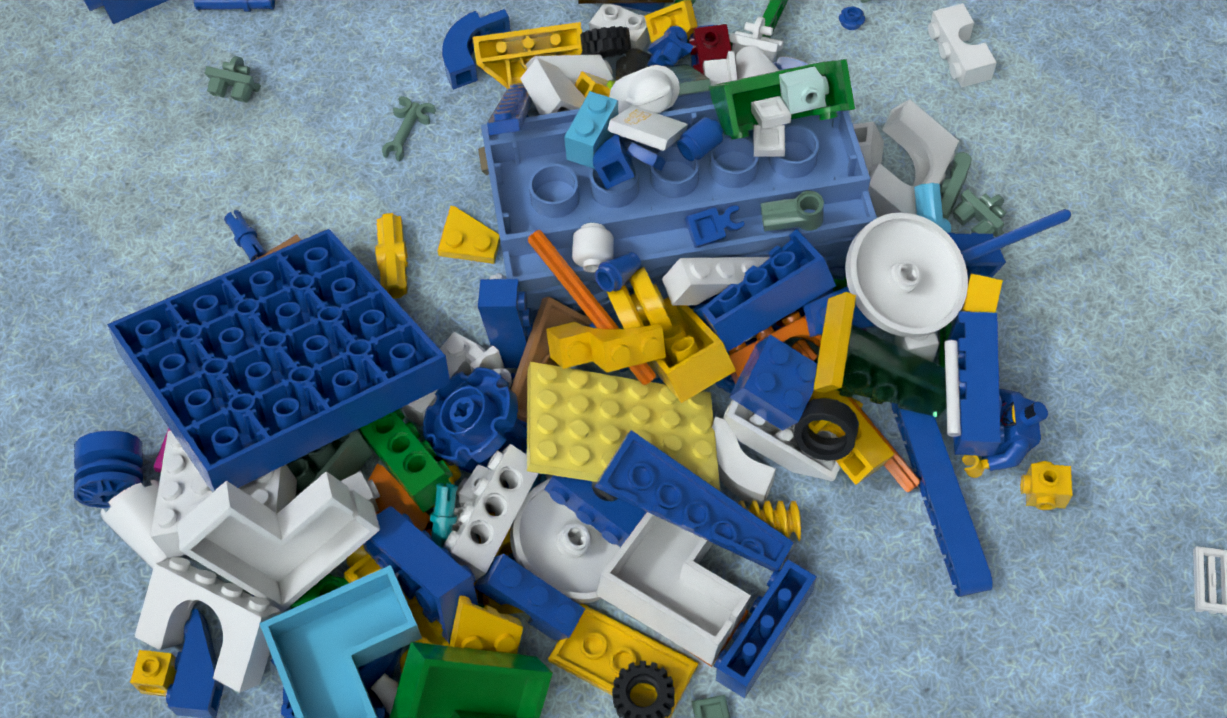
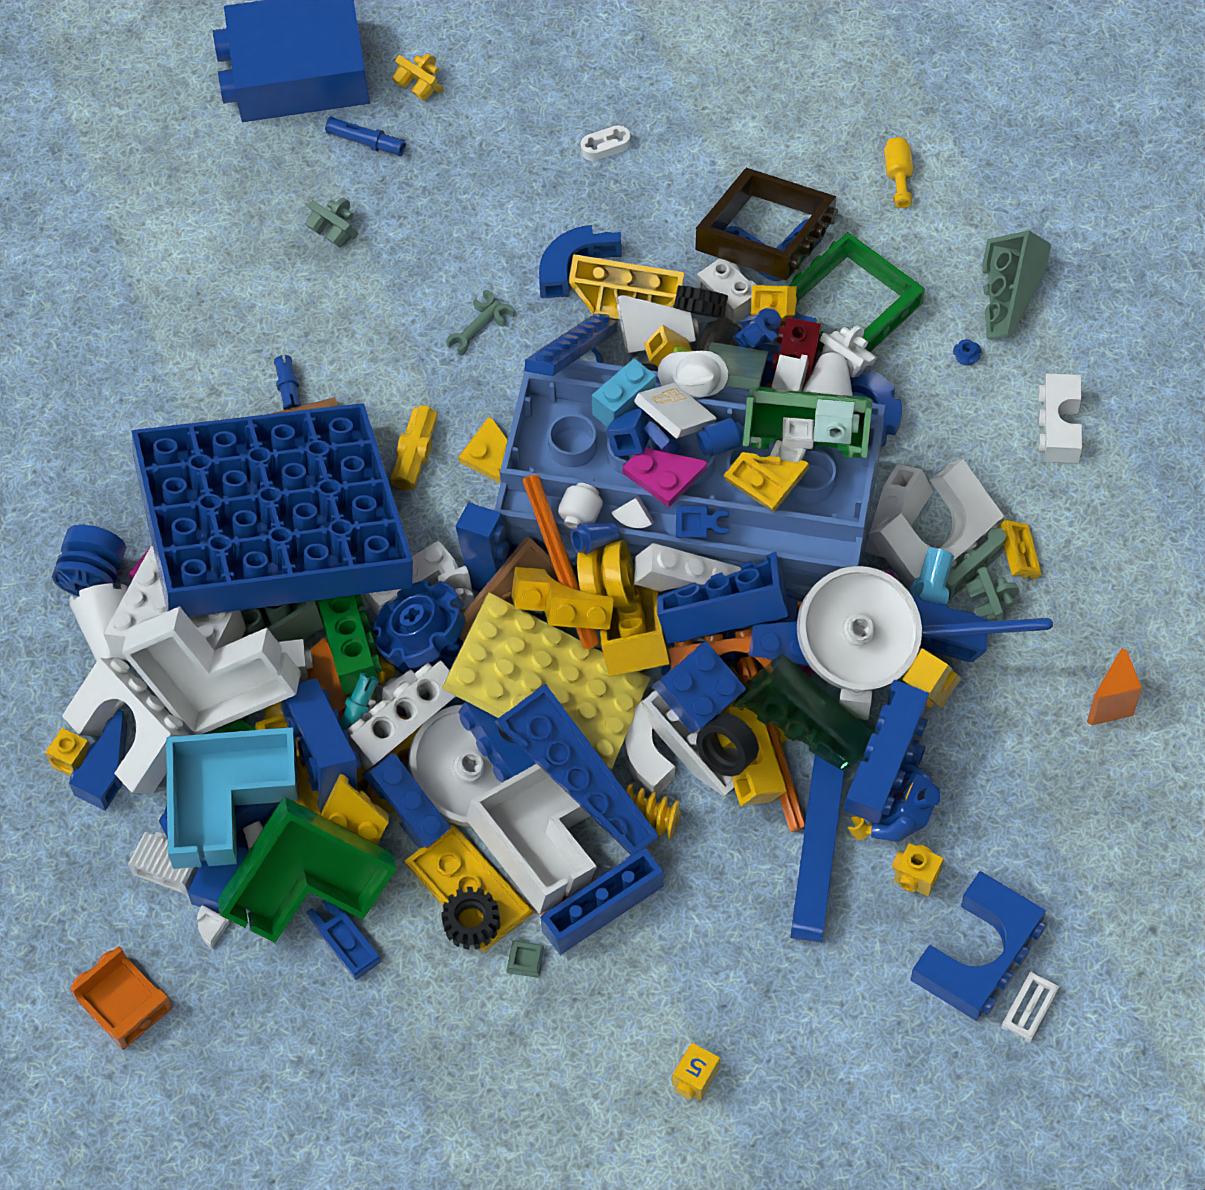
camera: 20 degrees right, 0 degrees up
(550, 88) = (624, 337): white slope -> none
(645, 239) = (633, 514): none -> white tile
(660, 190) = (664, 473): none -> dark pink wing
(761, 162) = (765, 478): none -> yellow wing
(791, 213) = (774, 536): sand green piece -> none
(834, 342) = (761, 668): yellow tile -> none
(952, 388) = (859, 748): white bar -> none
(986, 167) = (1017, 547): none -> yellow tile
(1139, 256) = (1117, 693): none -> orange slope
(1164, 506) = (973, 987): none -> blue arch

